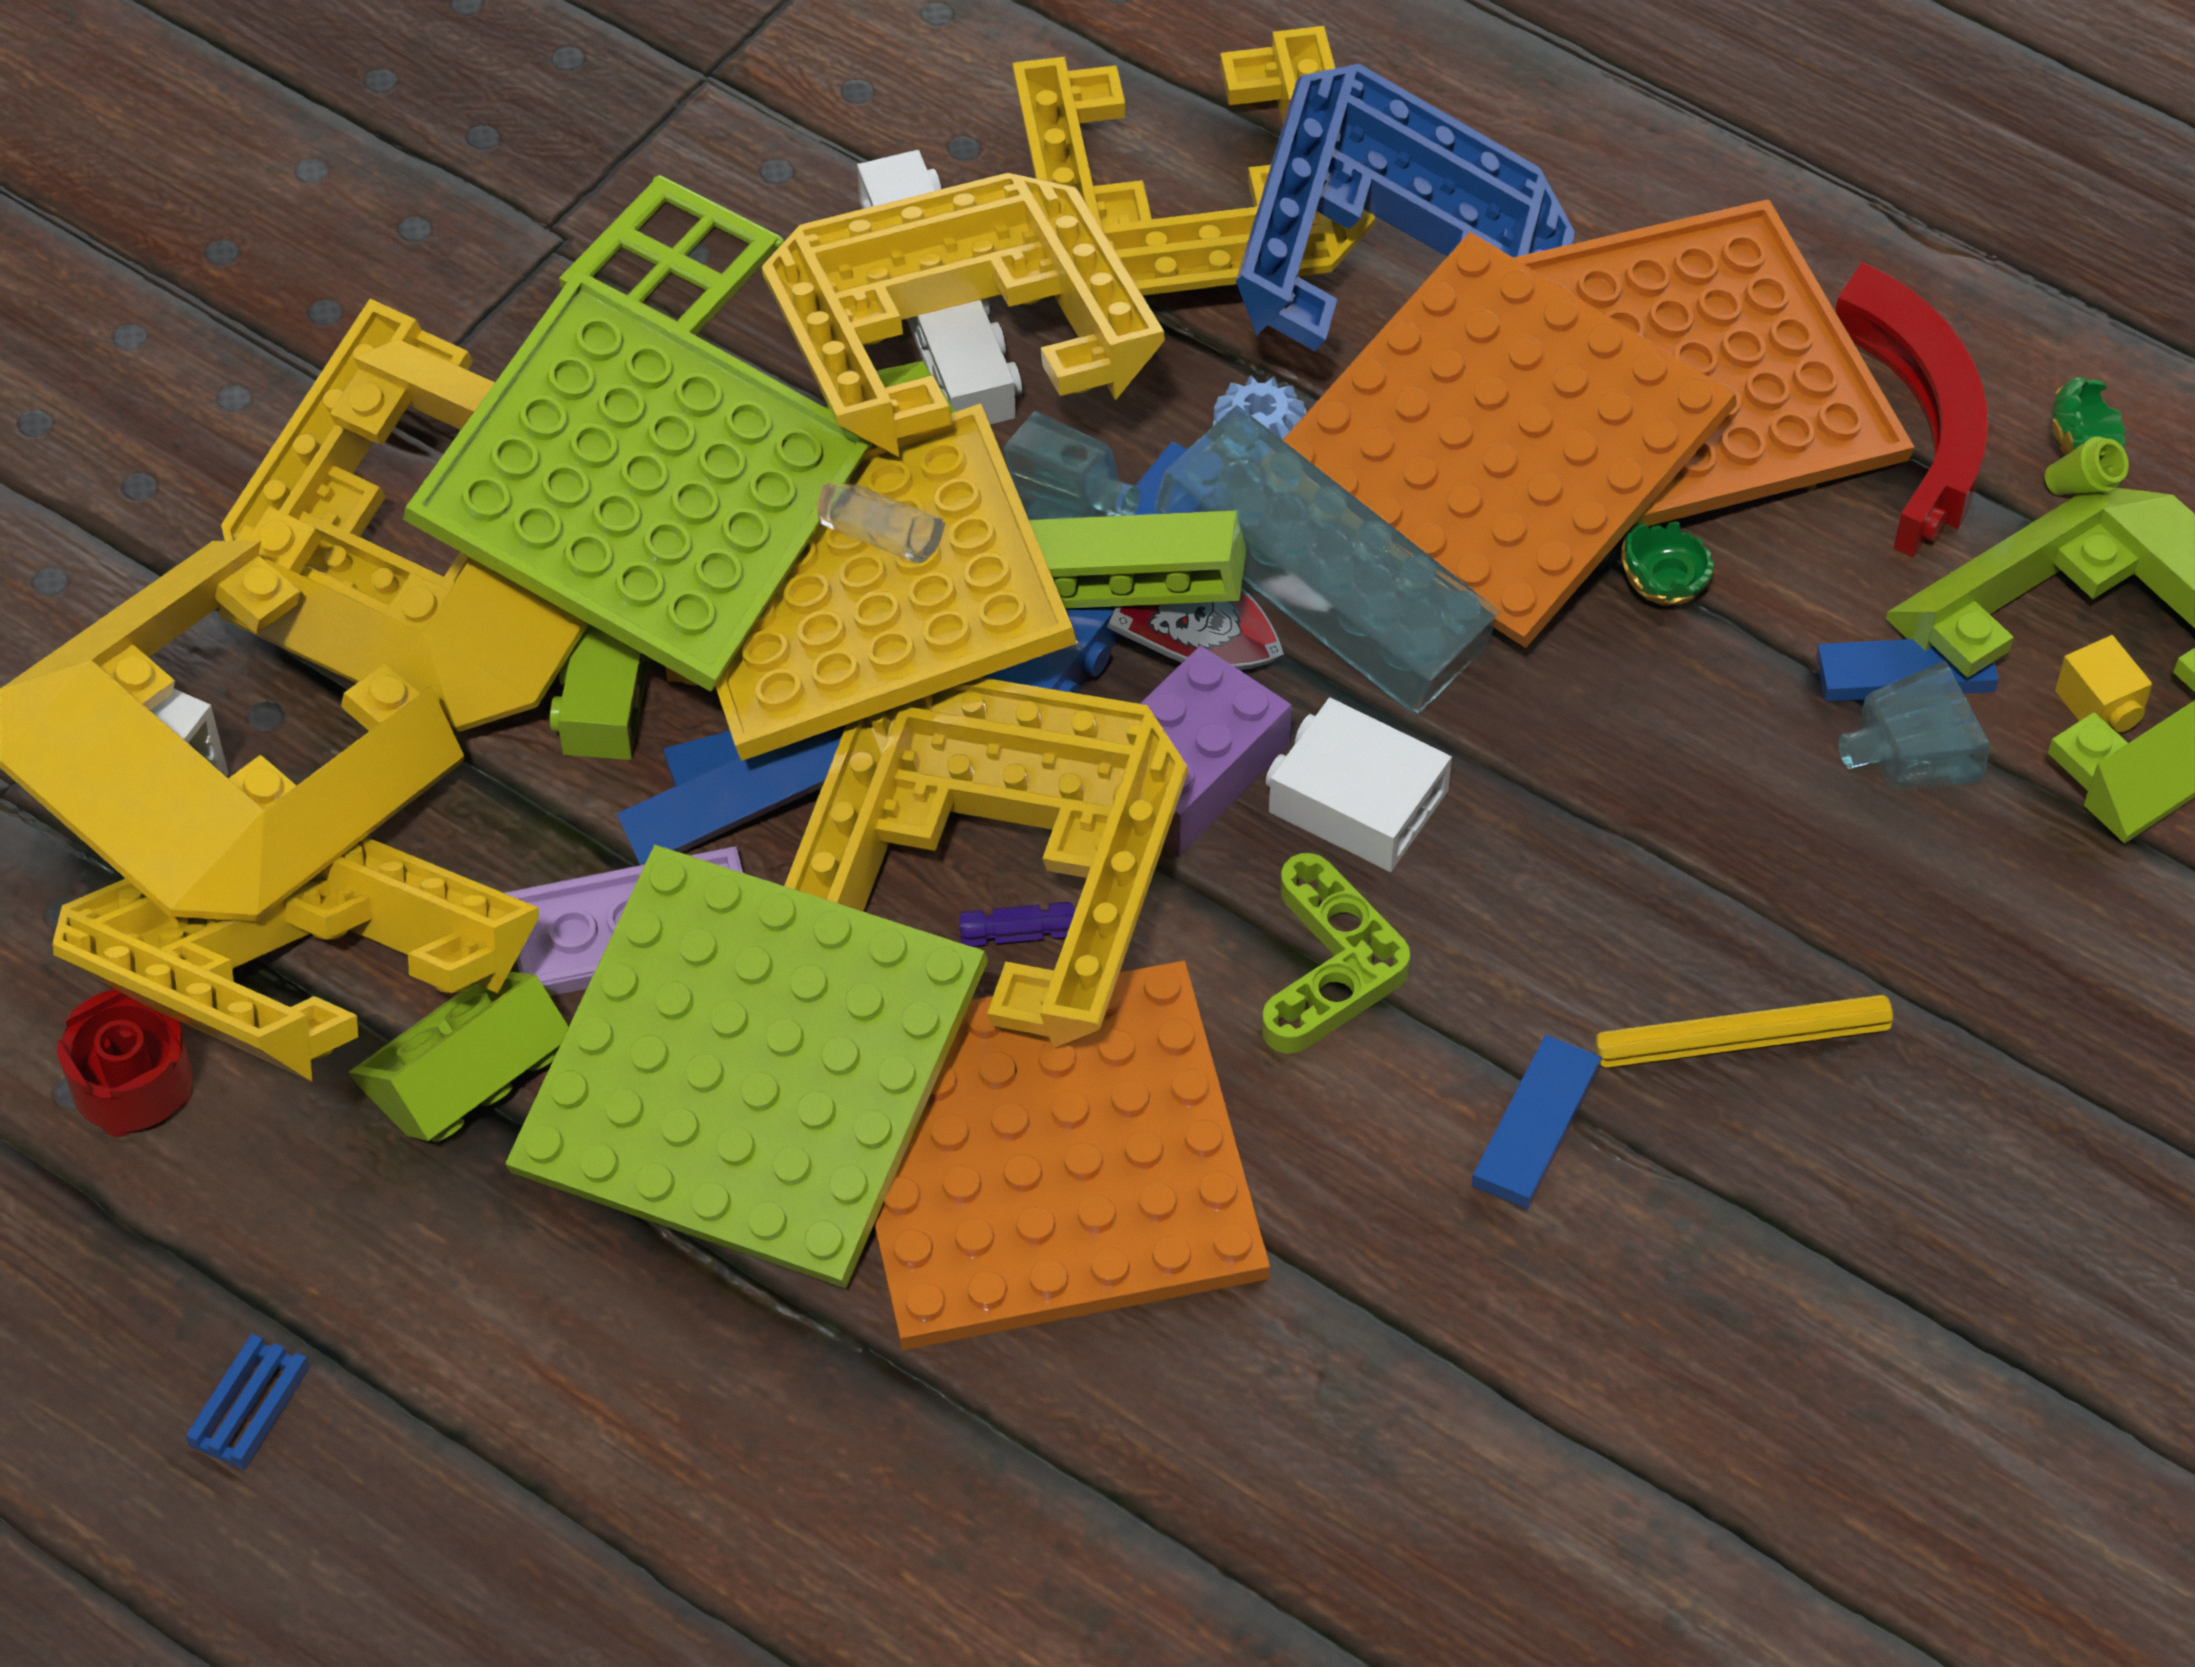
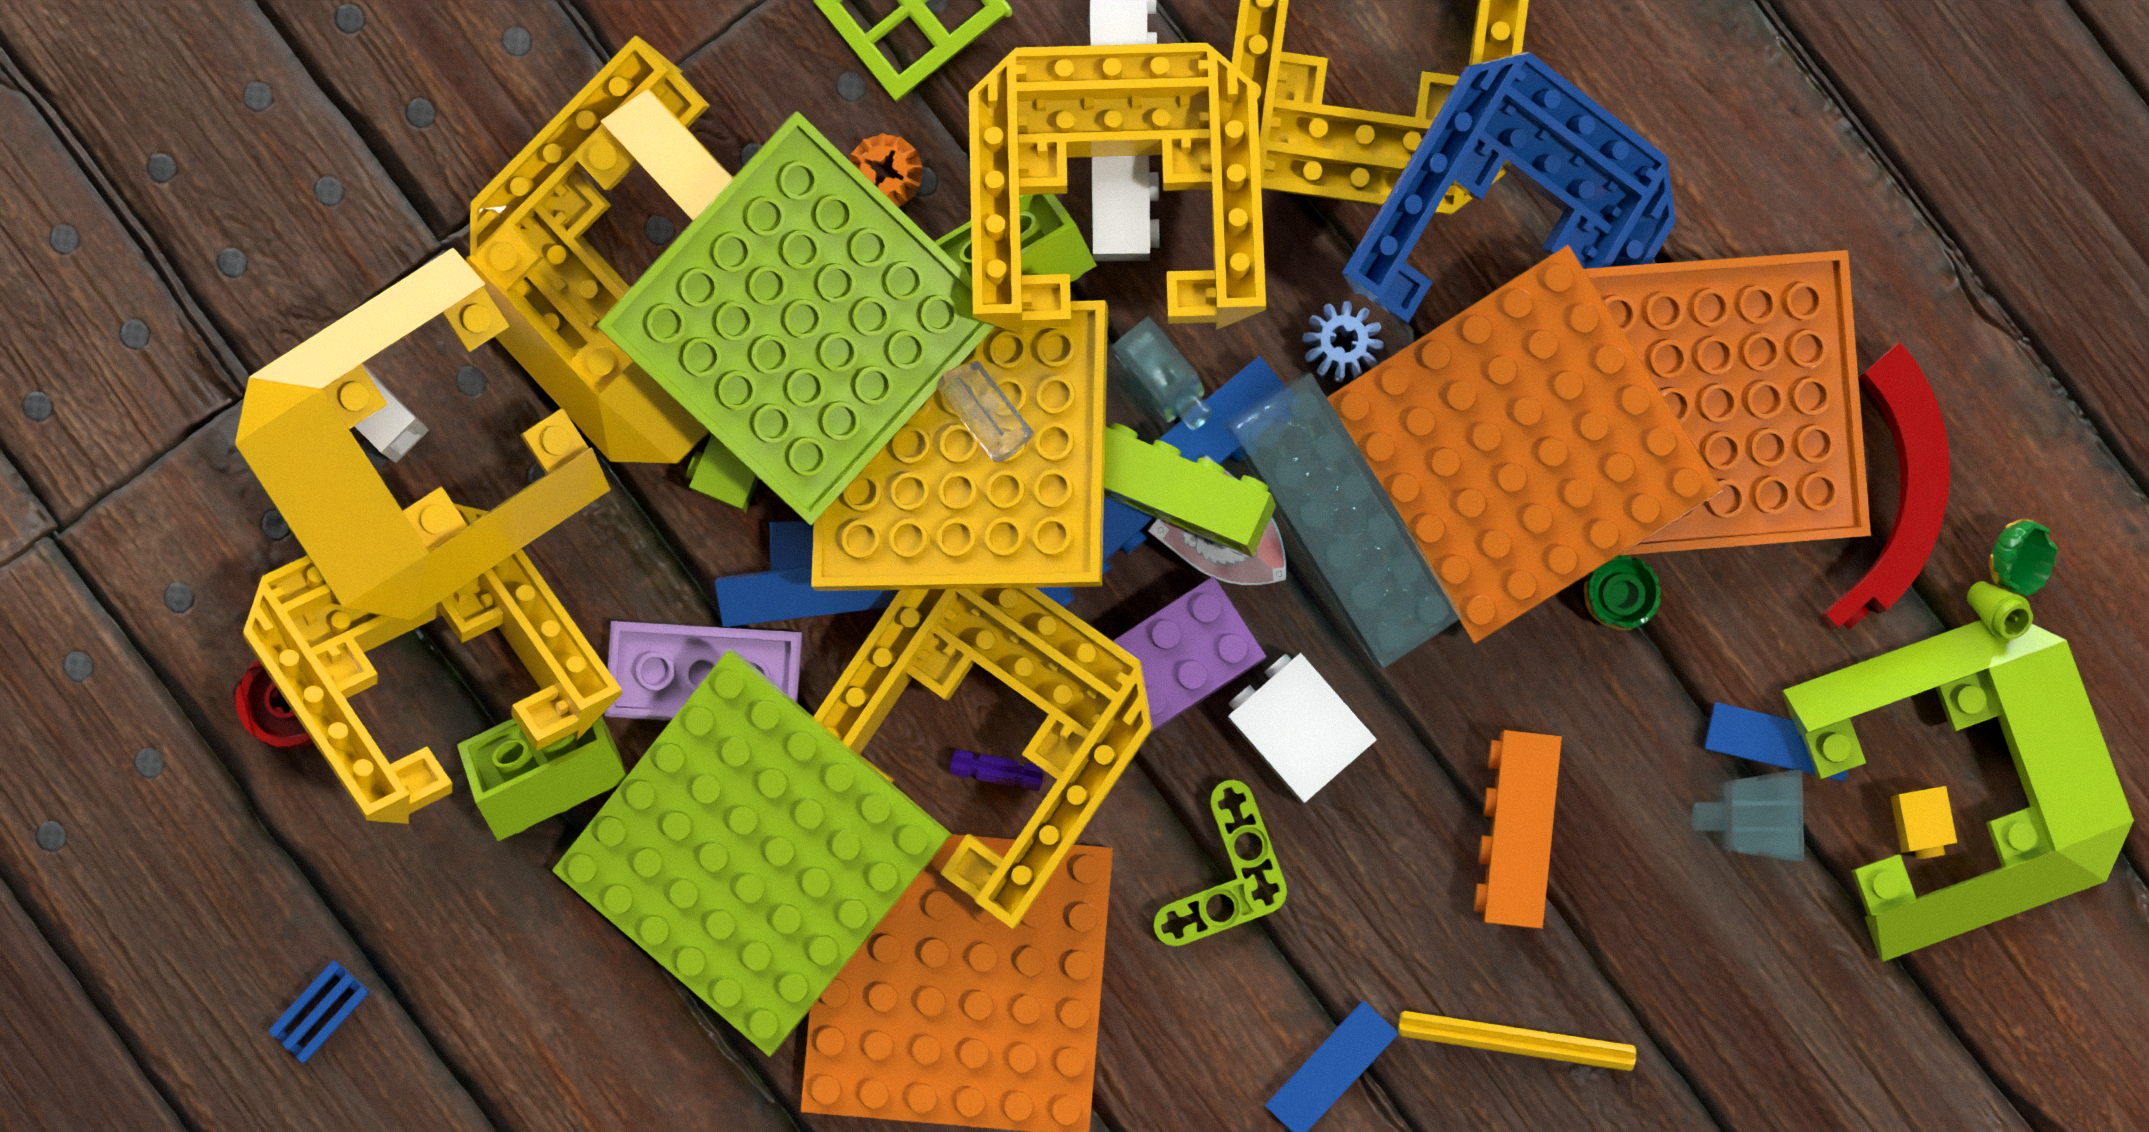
camera: 20 degrees right, 30 degrees up
(1653, 816) = (1519, 830): none -> orange brick

